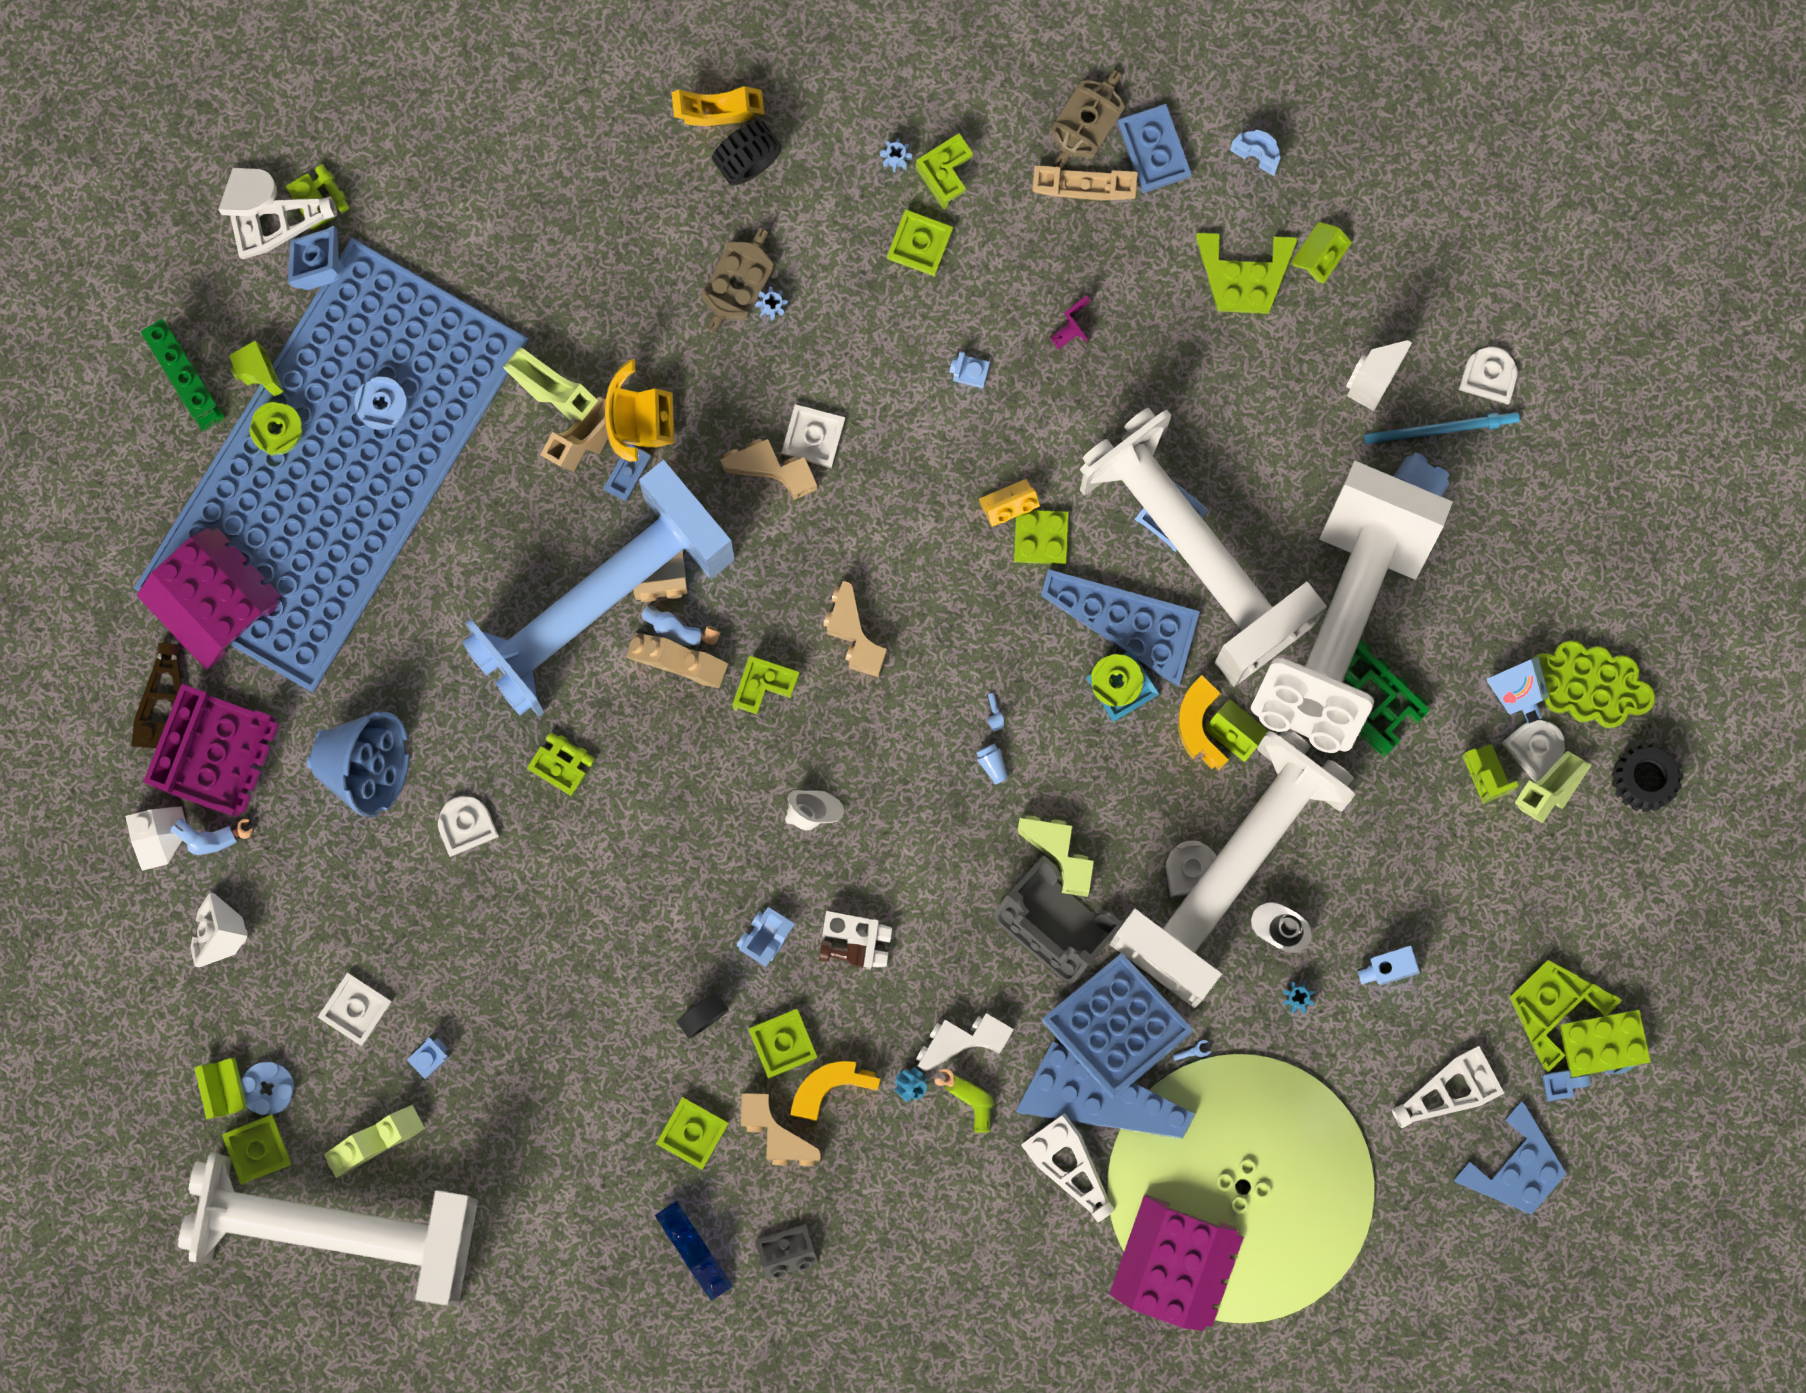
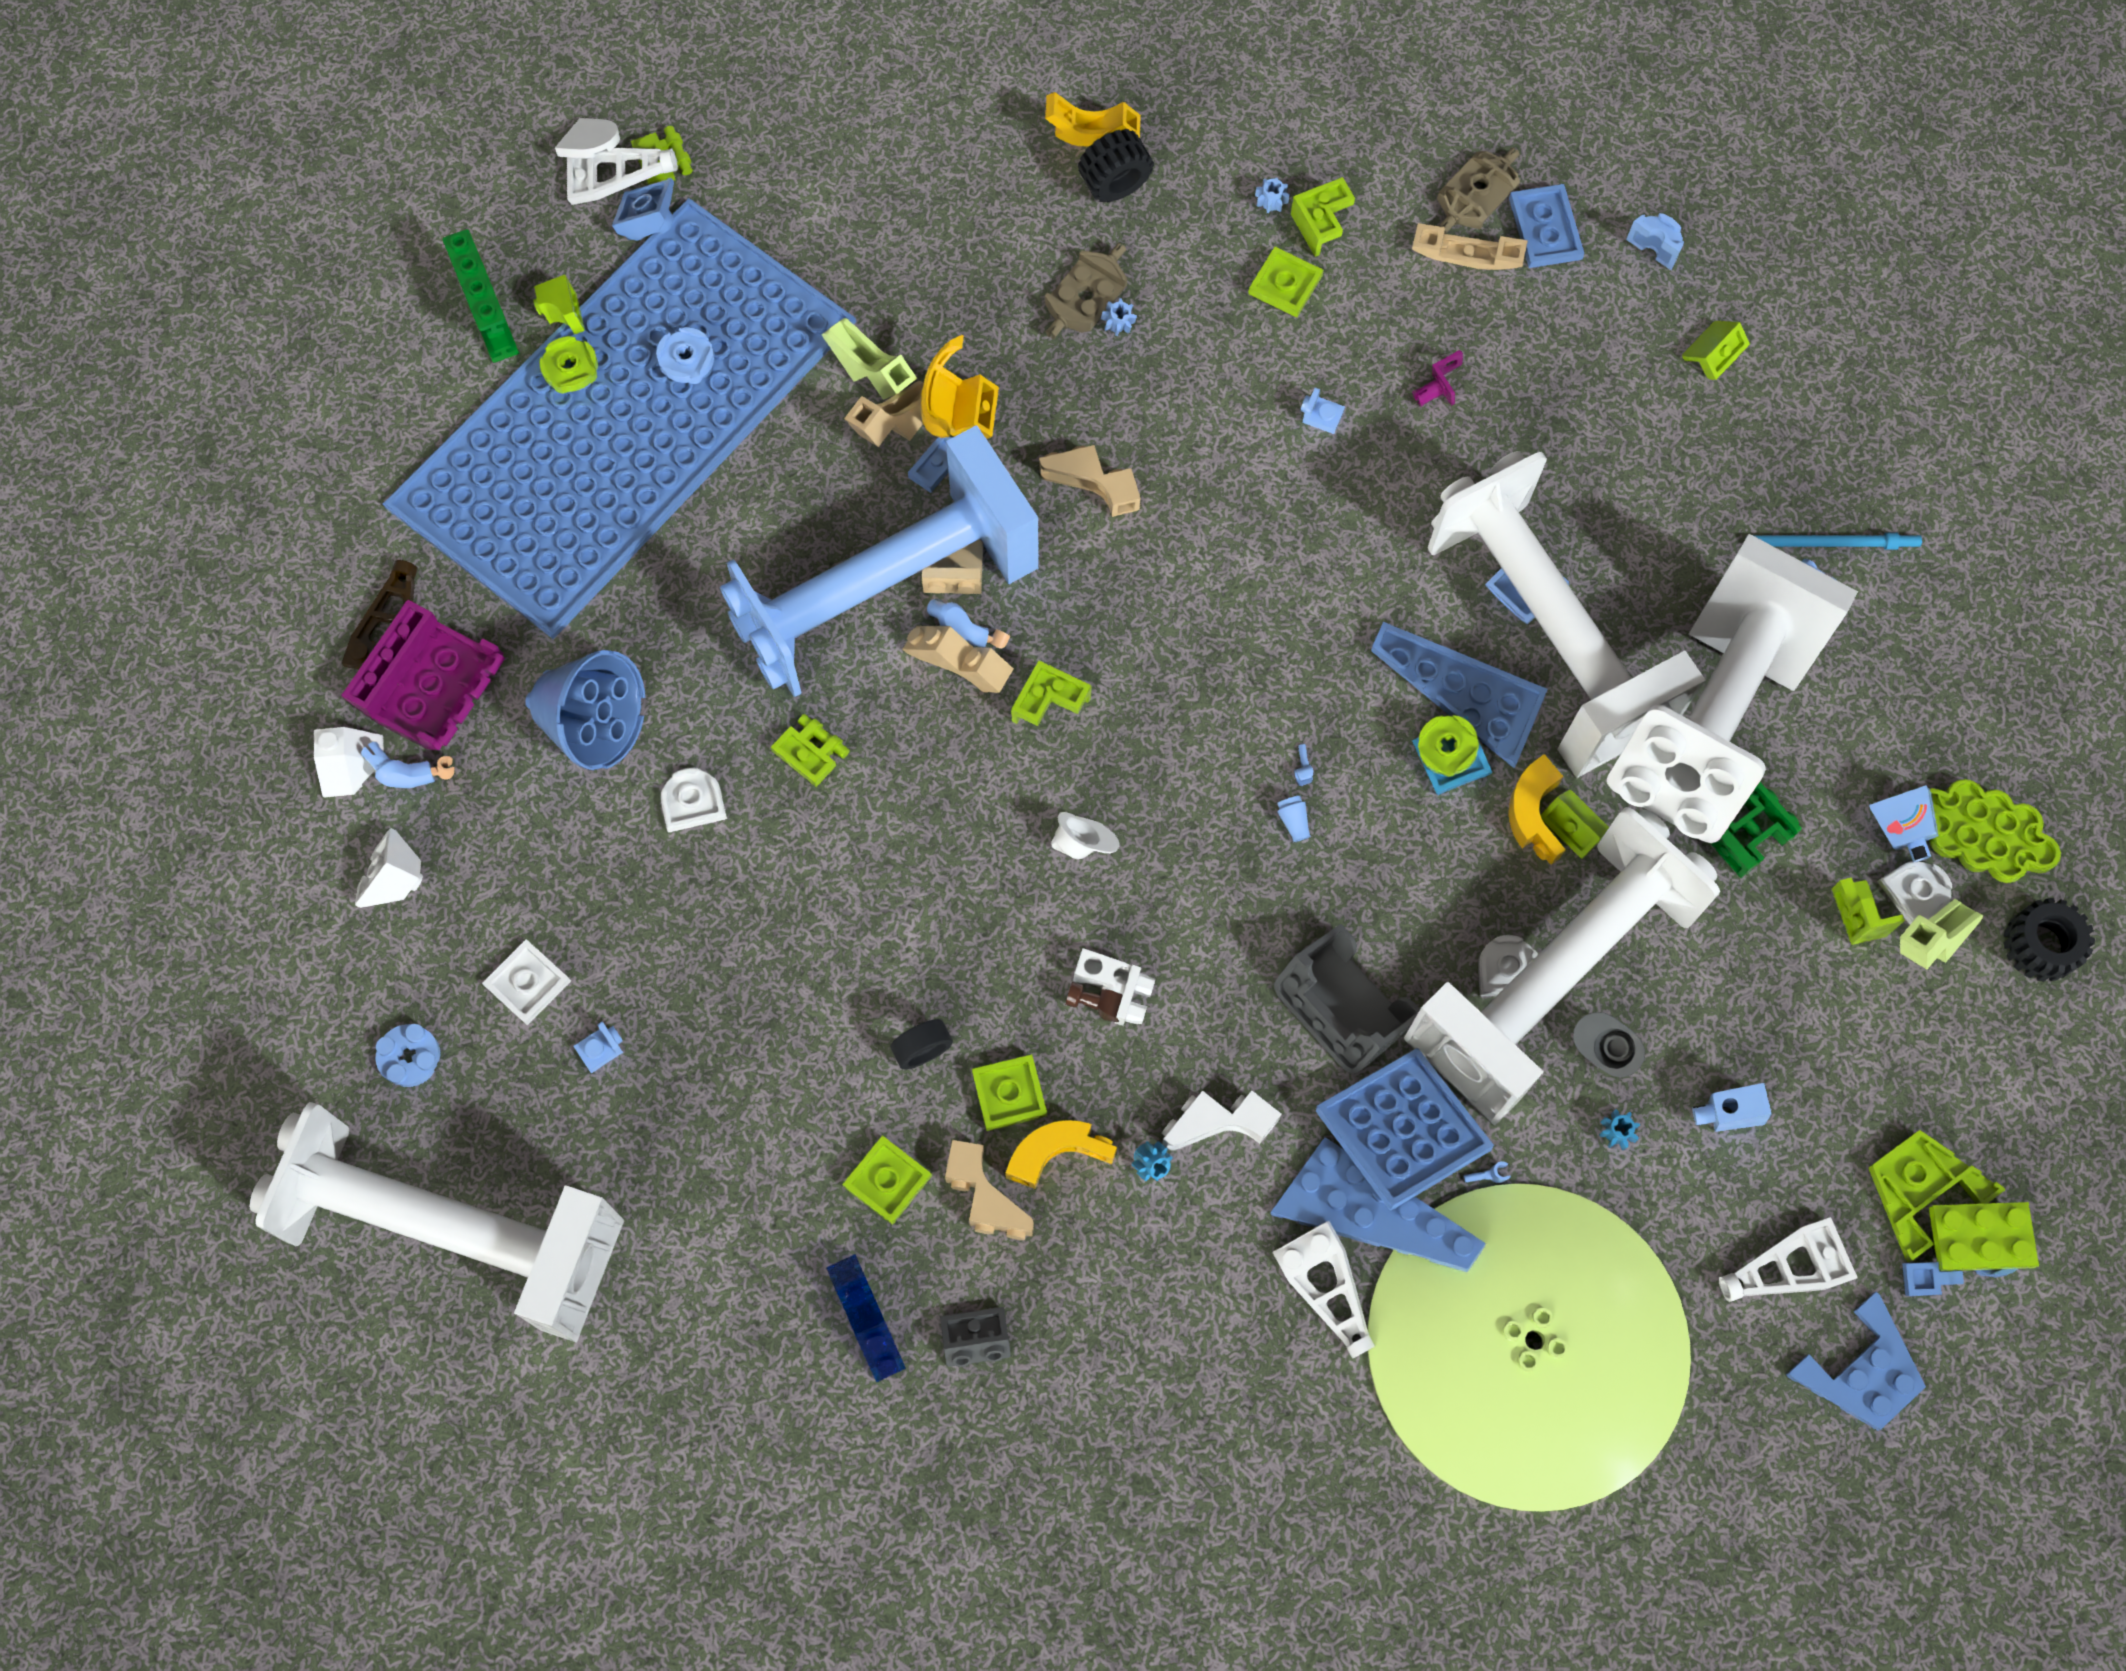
camera: 10 degrees right, 10 degrees down
(207, 595) = (457, 517): magenta slope -> none
(220, 1088) = (352, 1046): lime panel -> none
(256, 1149) = (380, 1122): lime plate -> none
(373, 1140) = (508, 1132): yellowish green arch -> none
(766, 937) = (1010, 968): light blue cylinder -> none
(813, 436) = (1145, 452): white tile -> none
(846, 625) = (1149, 648): tan arch -> none
(973, 1096) = (1221, 1185): lime arm -> none
(1009, 502) = (1349, 548): yellow bracket -> none
(1041, 537) = (1378, 590): lime plate -> none
(1054, 841) = (1354, 911): yellowish green arch -> none
(1175, 1265) = (1443, 1423): magenta slope -> none
(1243, 284) = (1628, 369): lime wing -> none
(1375, 373) = (1773, 461): white slope -> none
(1490, 374) = (1891, 495): white tile -> none

